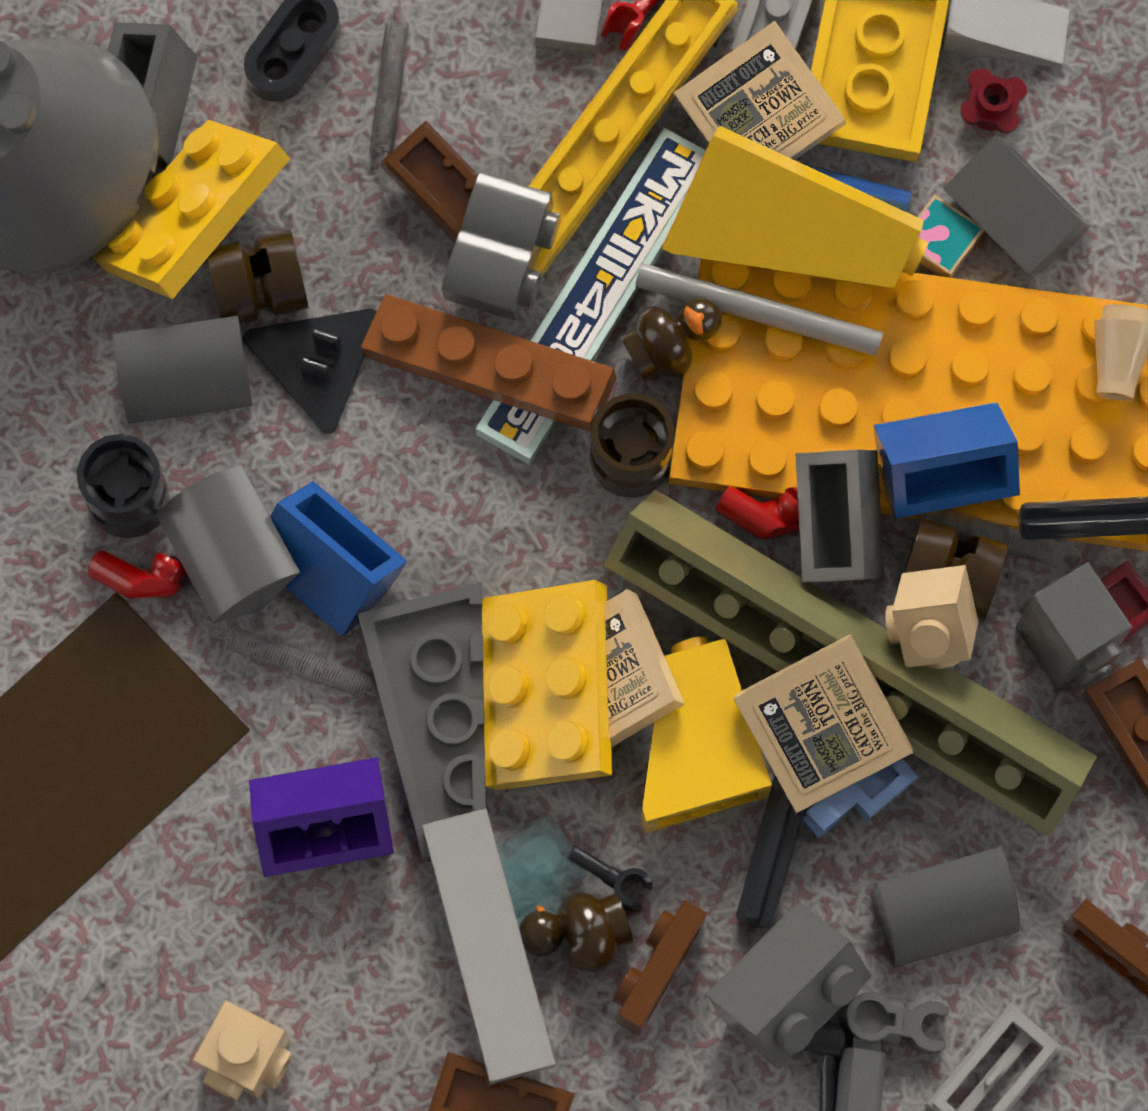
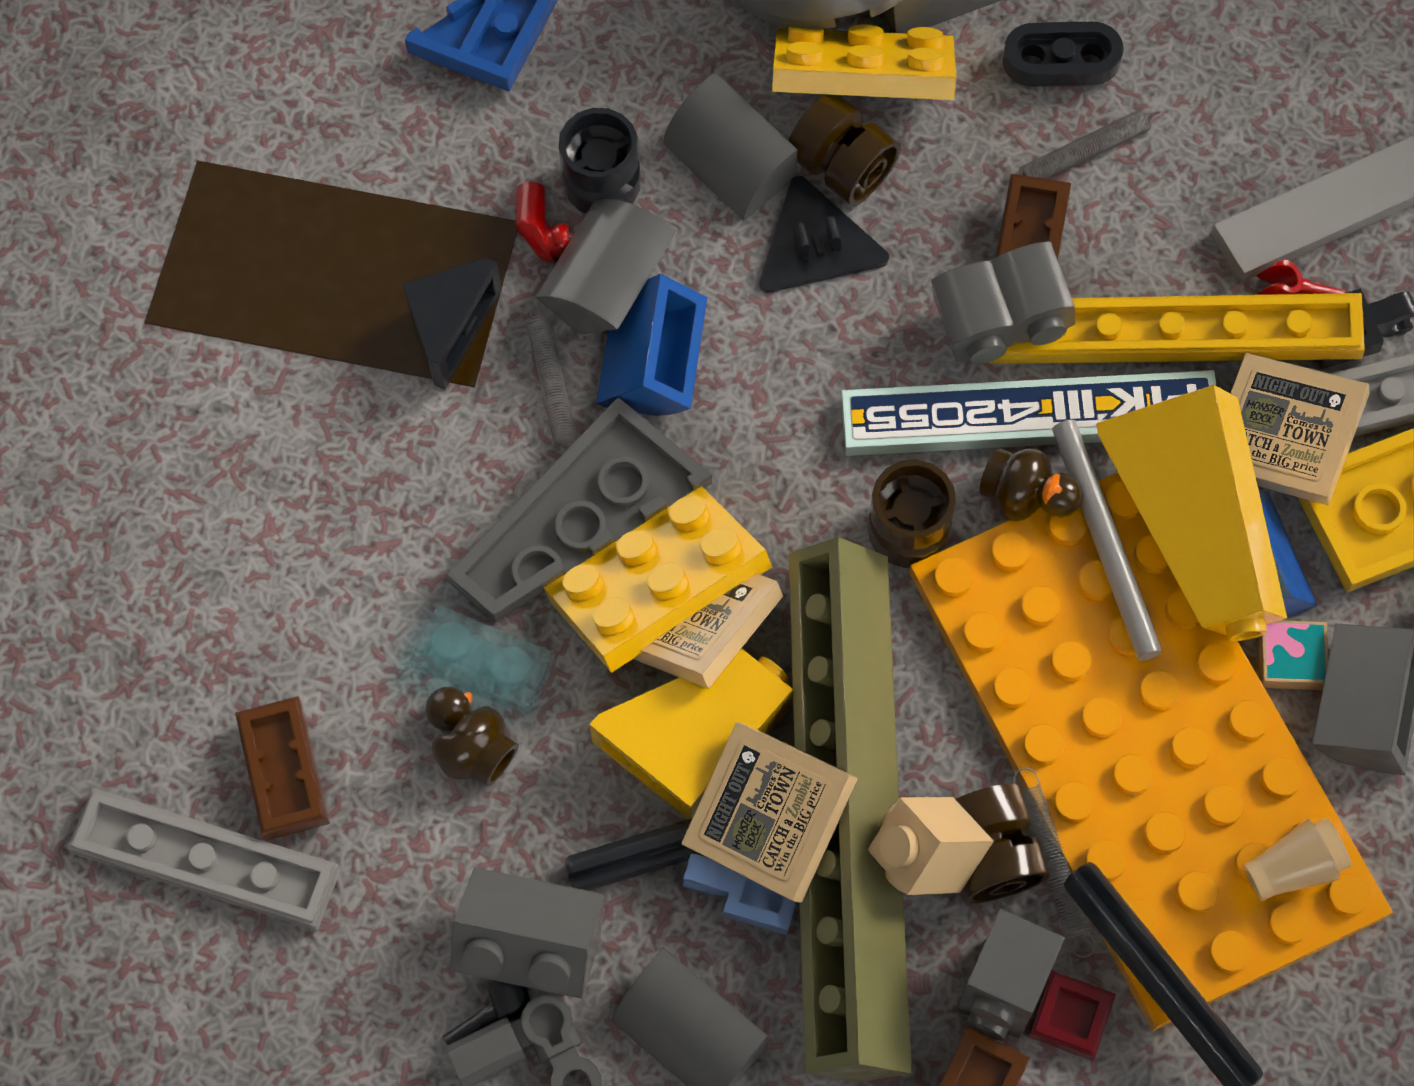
camera: 60 degrees right, 5 degrees down
(172, 709) = (450, 311): none -> black slope
(243, 1053) = (197, 539): tan brick -> none
(320, 817) = (427, 474): dark purple brick -> none
(488, 362) = (903, 361): dark orange plate -> none
(488, 946) = (402, 668): light grey tile -> none
(610, 875) = (532, 733): black hand -> none
(643, 990) = (452, 820): reddish brown plate -> none
(762, 519) = (932, 668): red arm -> none
(839, 515) = (969, 716): dark grey brick -> none
(947, 459) = (1084, 773): blue brick -> none

